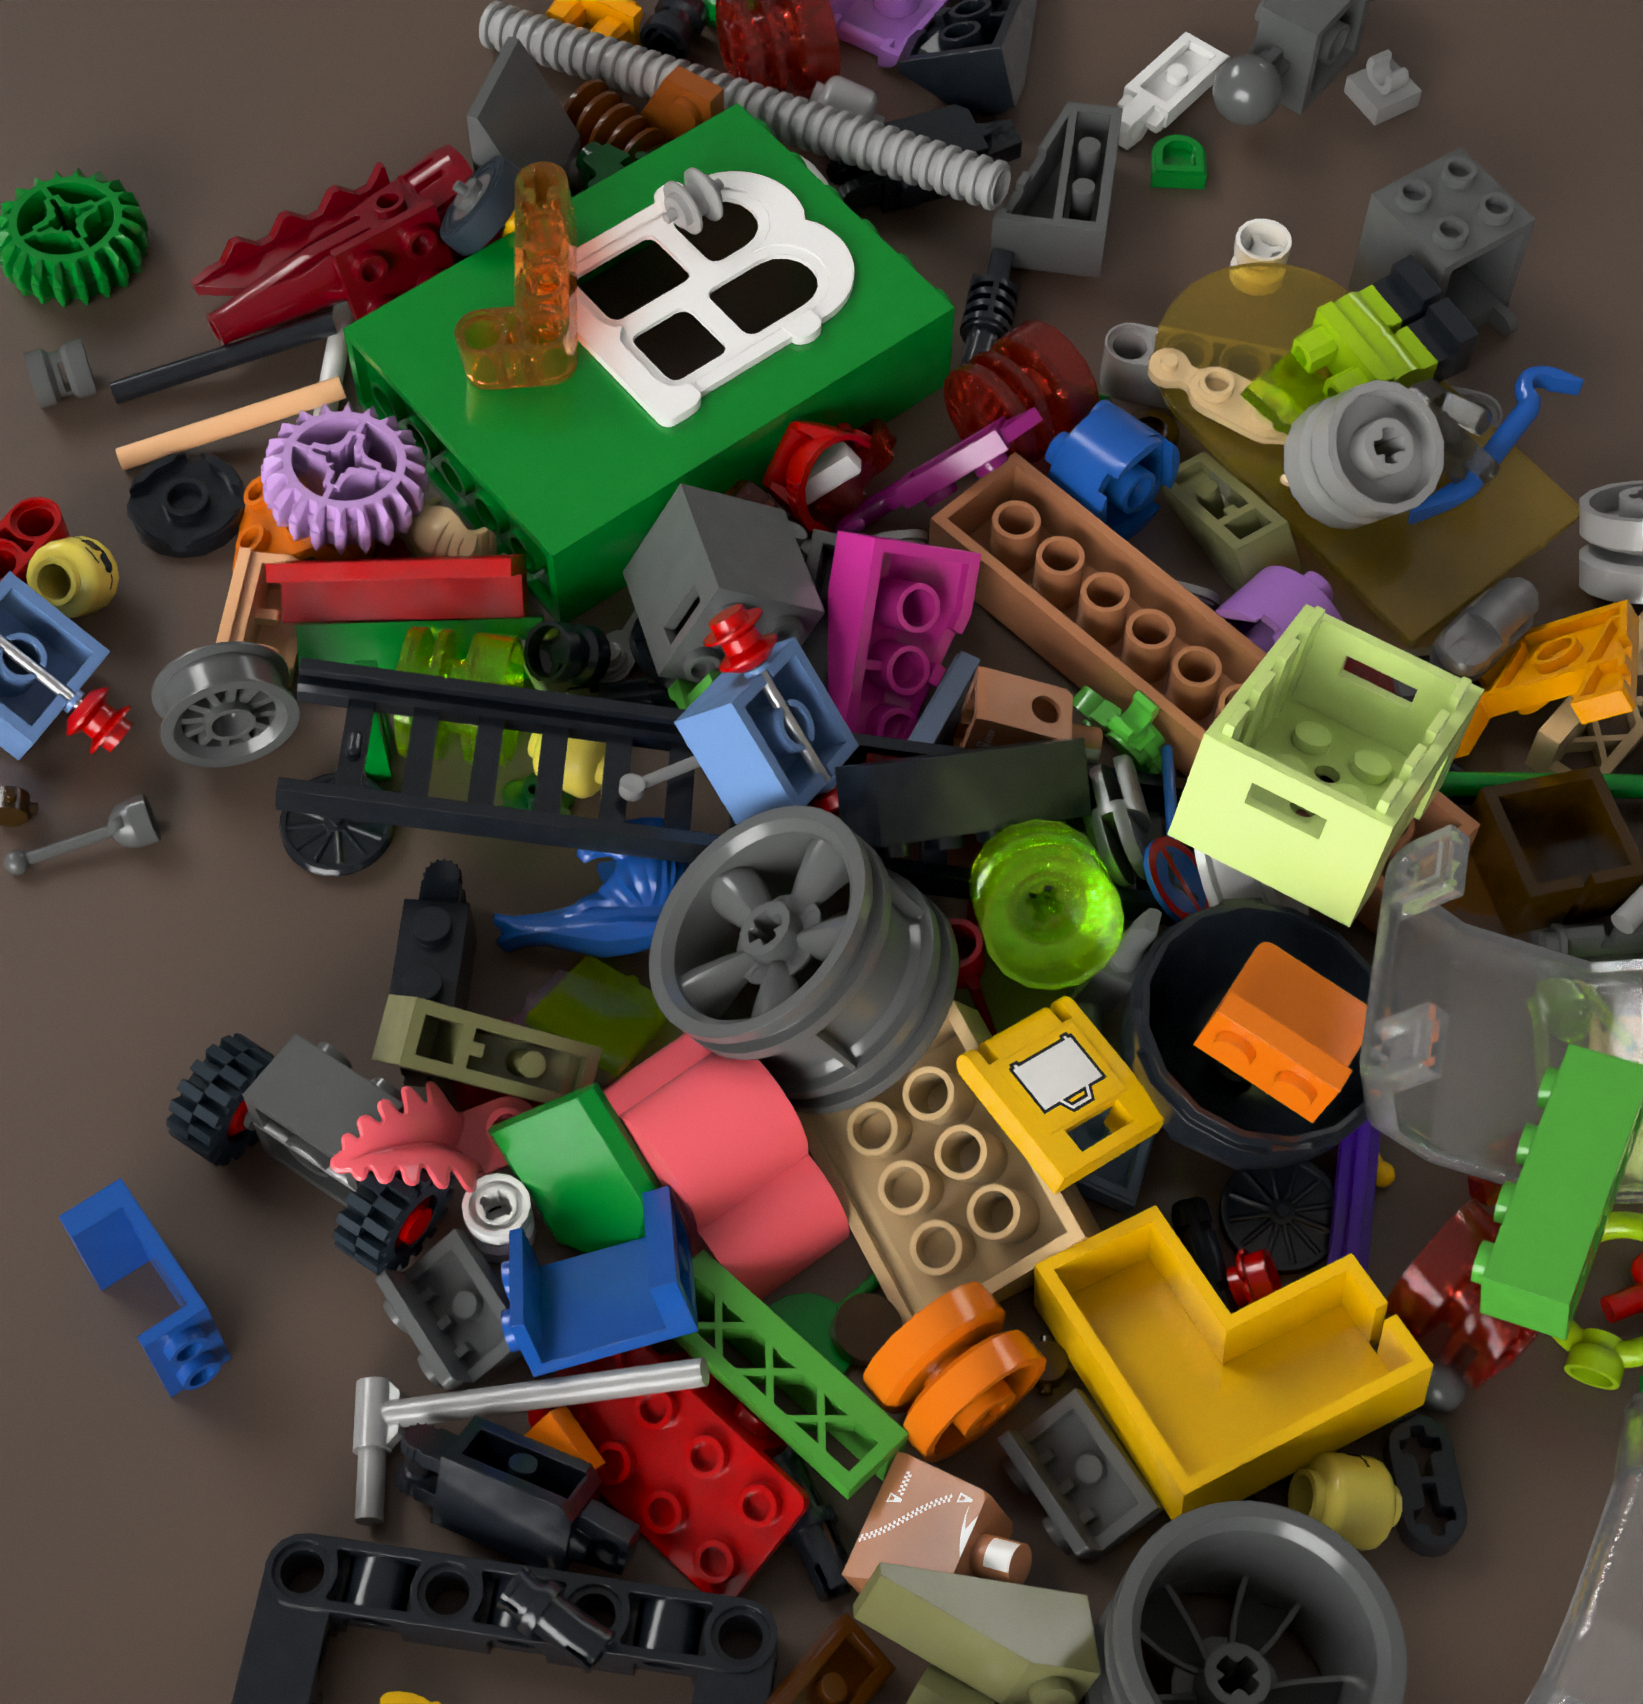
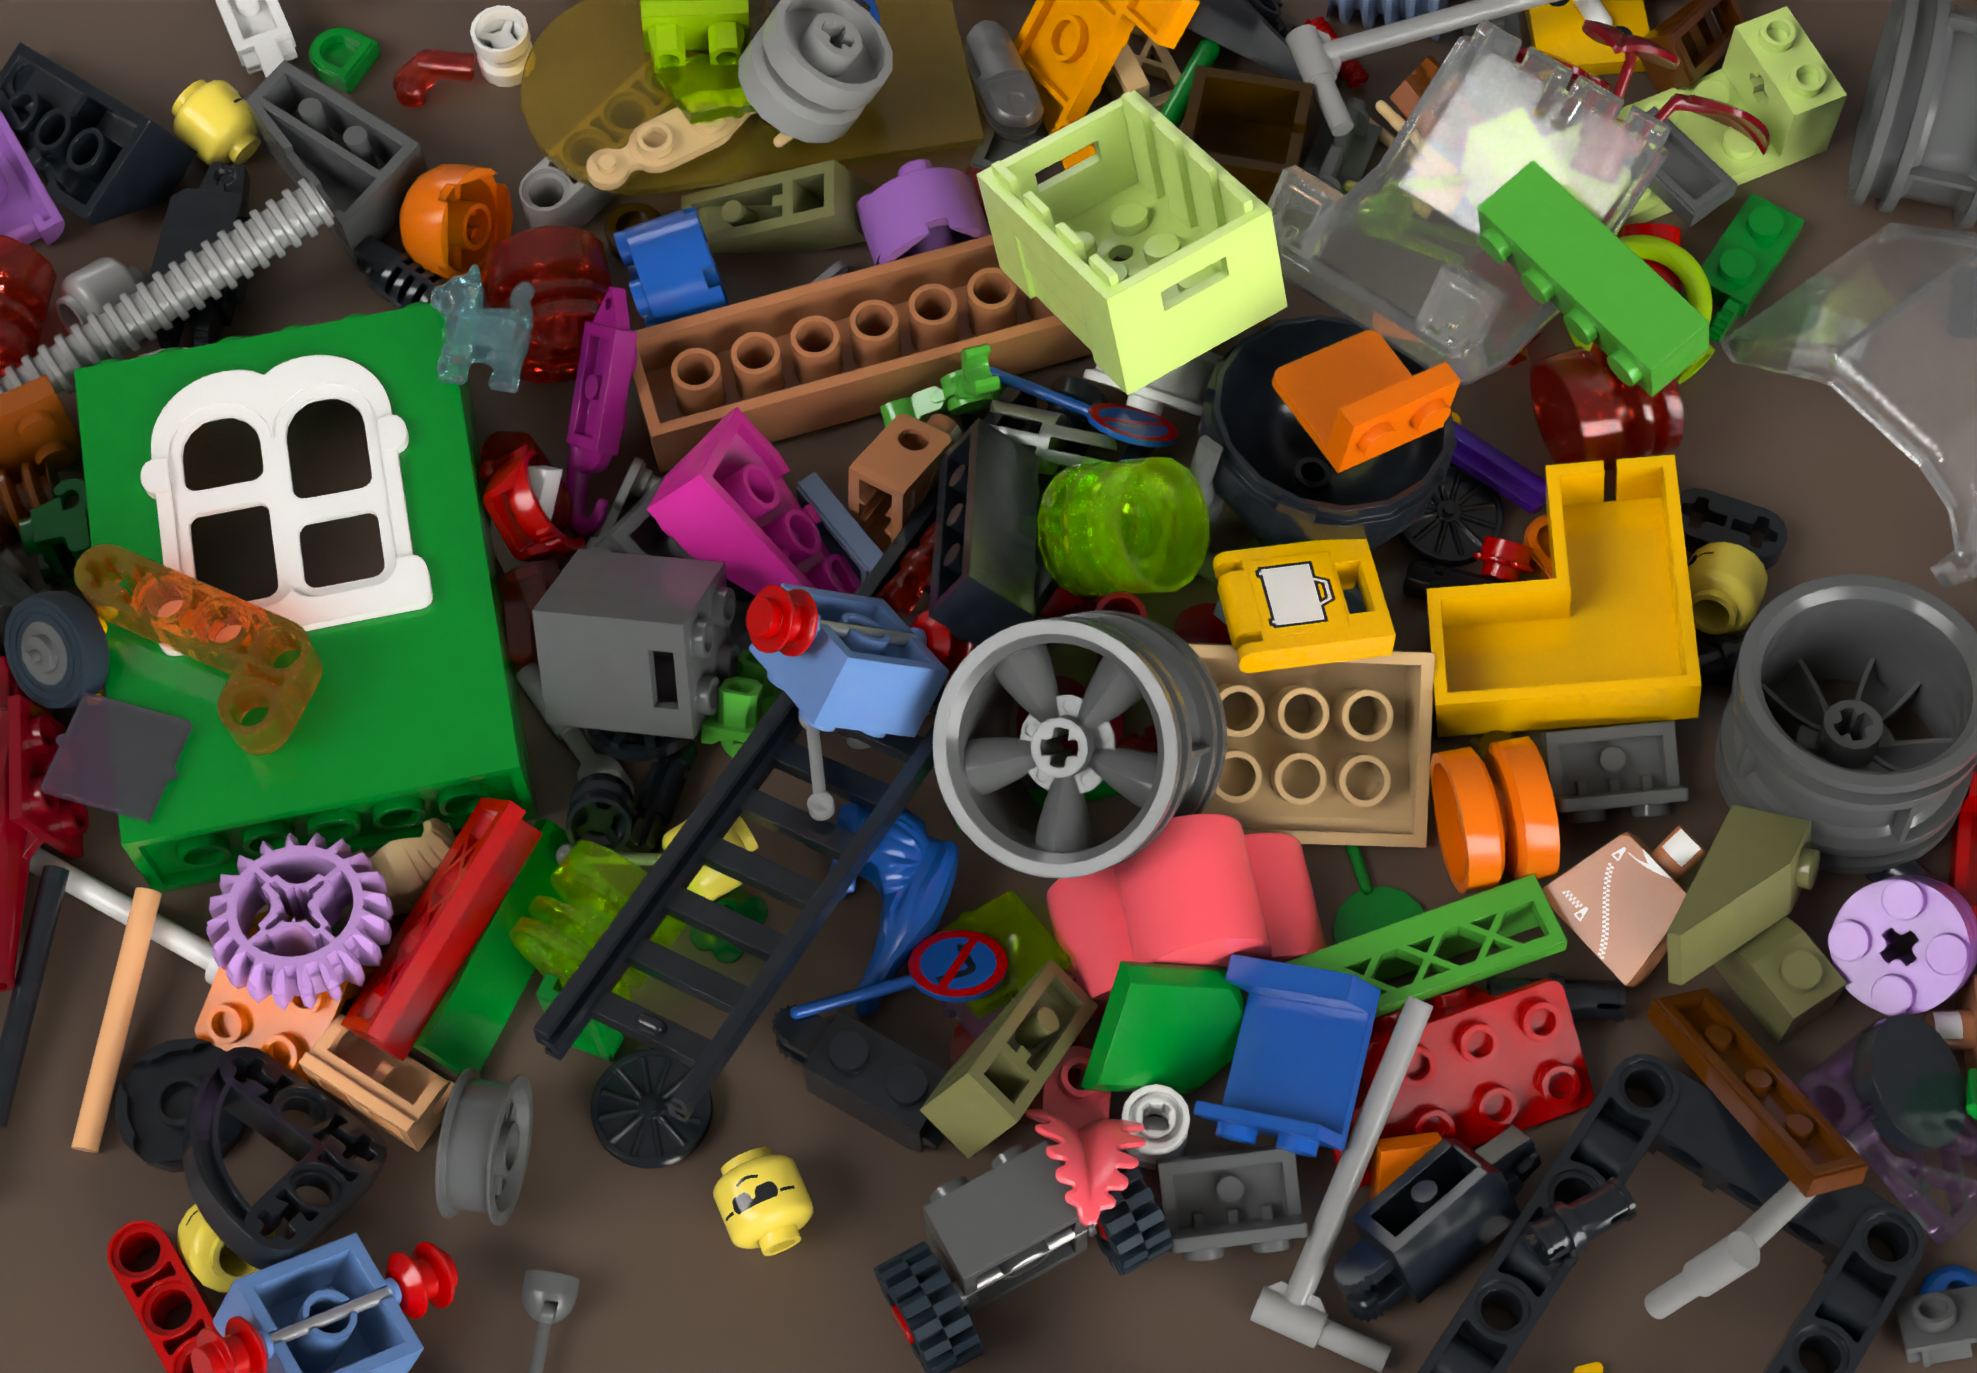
camera: 60 degrees left, 5 degrees up
(163, 607) = (318, 1163): none -> black beam
(281, 935) = (763, 1201): none -> light yellow head
(413, 288) = (116, 757): none -> piece
(554, 976) = (943, 966): none -> blue piece
(695, 199) = (192, 455): light grey wheel -> none
(863, 1327) = (1402, 875): dark brown tile -> none
(929, 340) = (482, 334): none -> clear light blue animal
(1043, 99) = (215, 122): none -> light yellow head
(1066, 291) = (454, 218): none -> orange cylinder
(1200, 219) = (425, 69): none -> clear red arm

